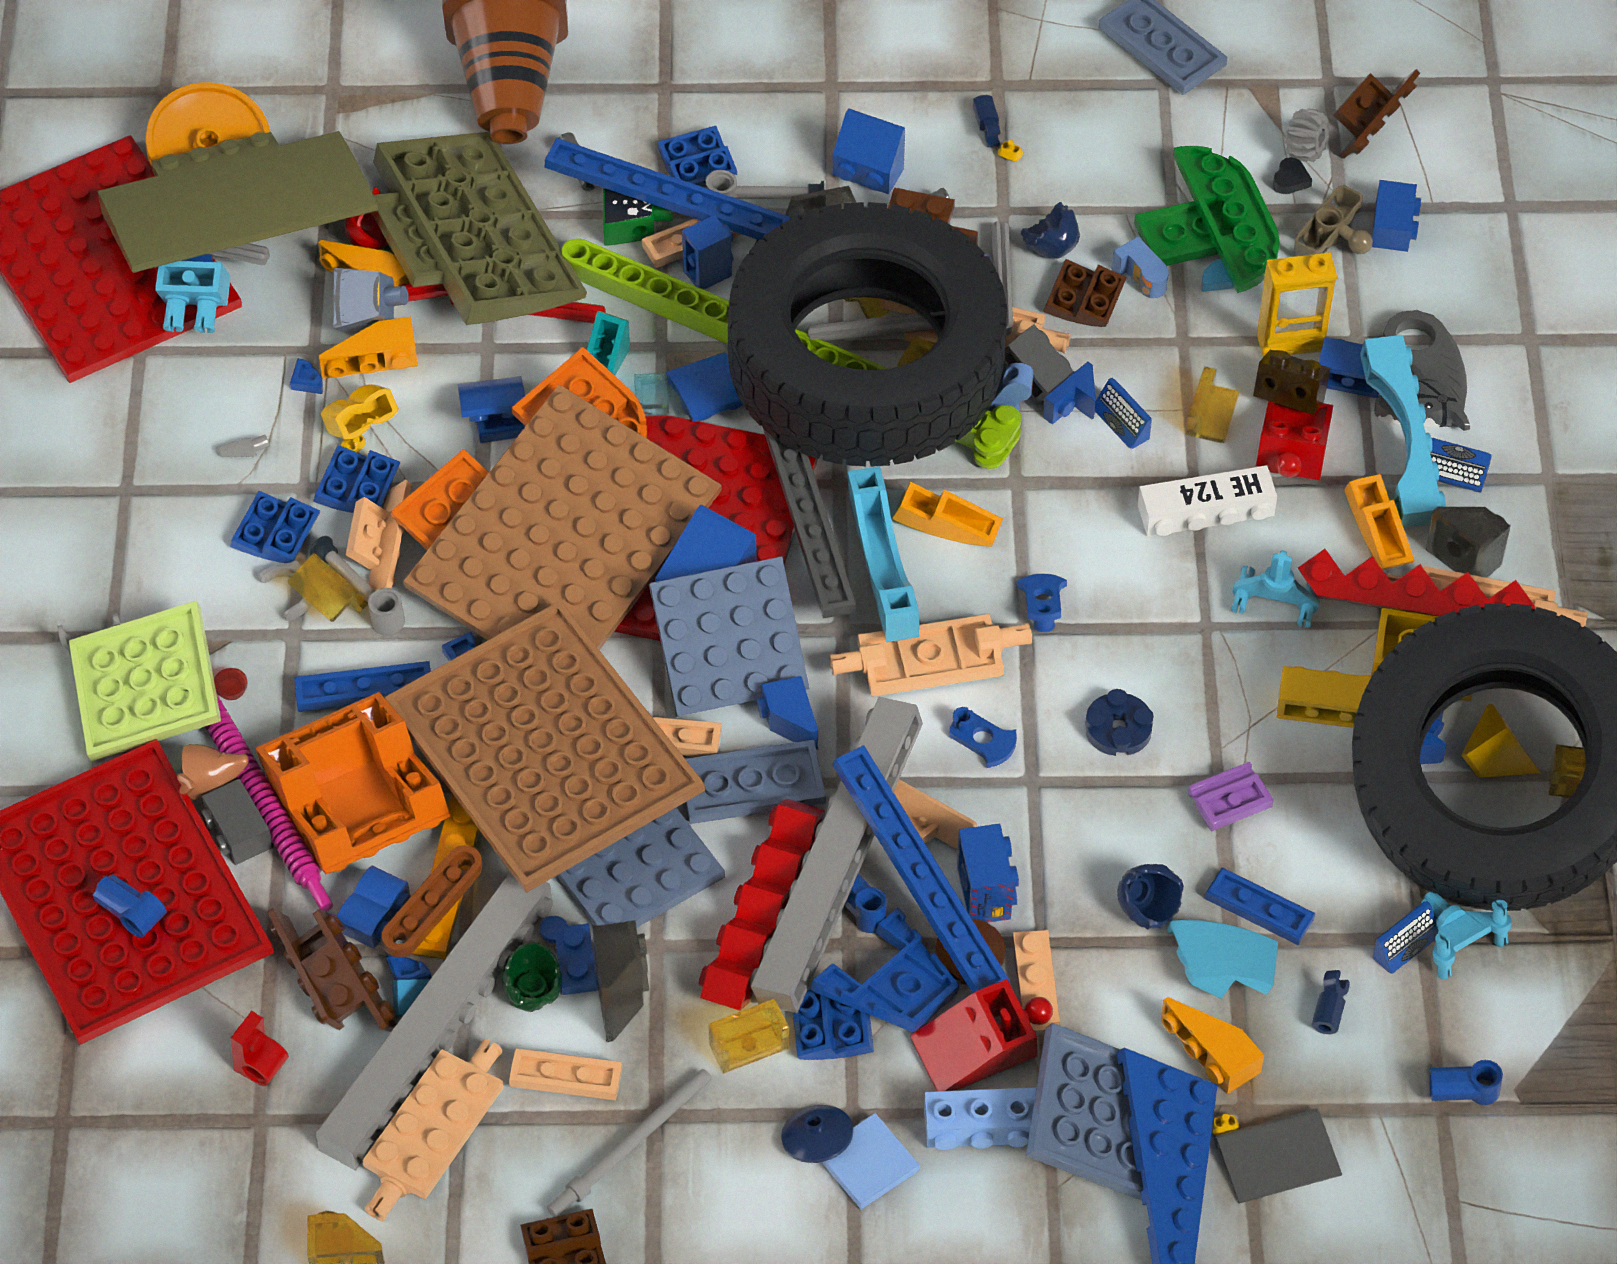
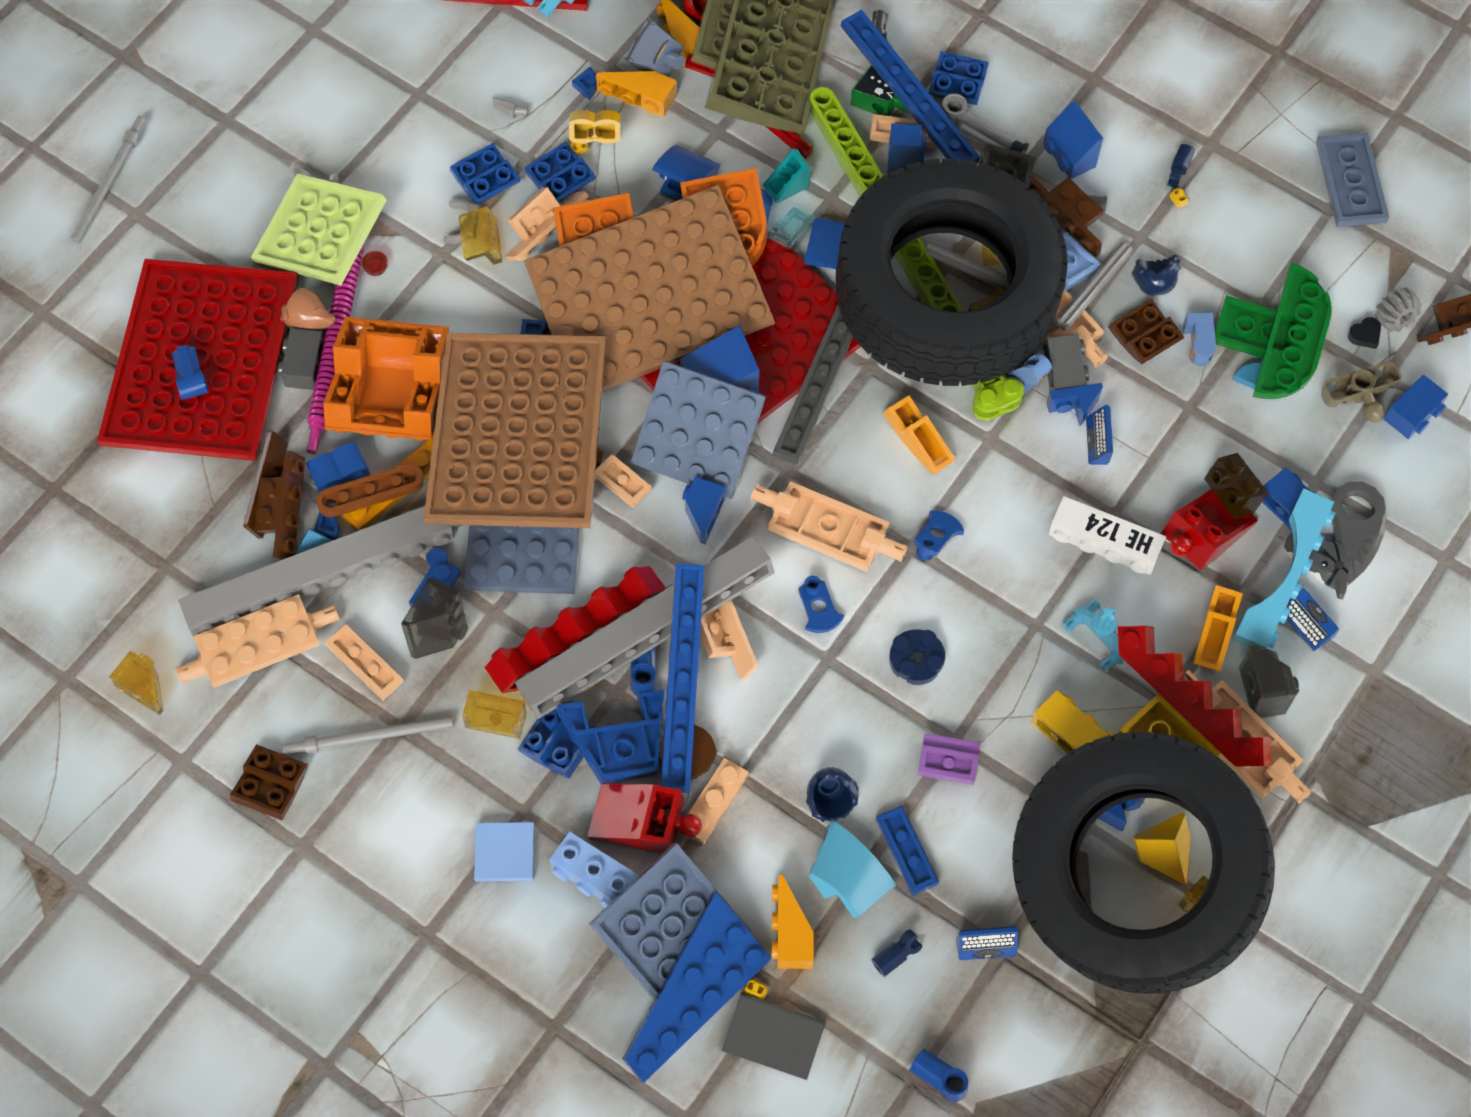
camera: 35 degrees right, 10 degrees up
(255, 1053) = (189, 519): red plate -> none
(350, 686) = (447, 313): blue plate -> none
(384, 604) = (504, 263): light grey piece -> none
(531, 977) = (393, 583): dark green hair -> none
(755, 781) = (639, 538): sand blue plate -> none
(817, 1133) = (490, 818): dark blue dish -> none
(886, 573) = (835, 460): medium azure arch -> none
(986, 873) = (733, 705): blue brick -> none
(1211, 409) = (1166, 469): clear yellow panel -> none
(1296, 303) = (1277, 431): yellow door -> none
(1461, 927) = (1028, 962): medium azure axle -> none

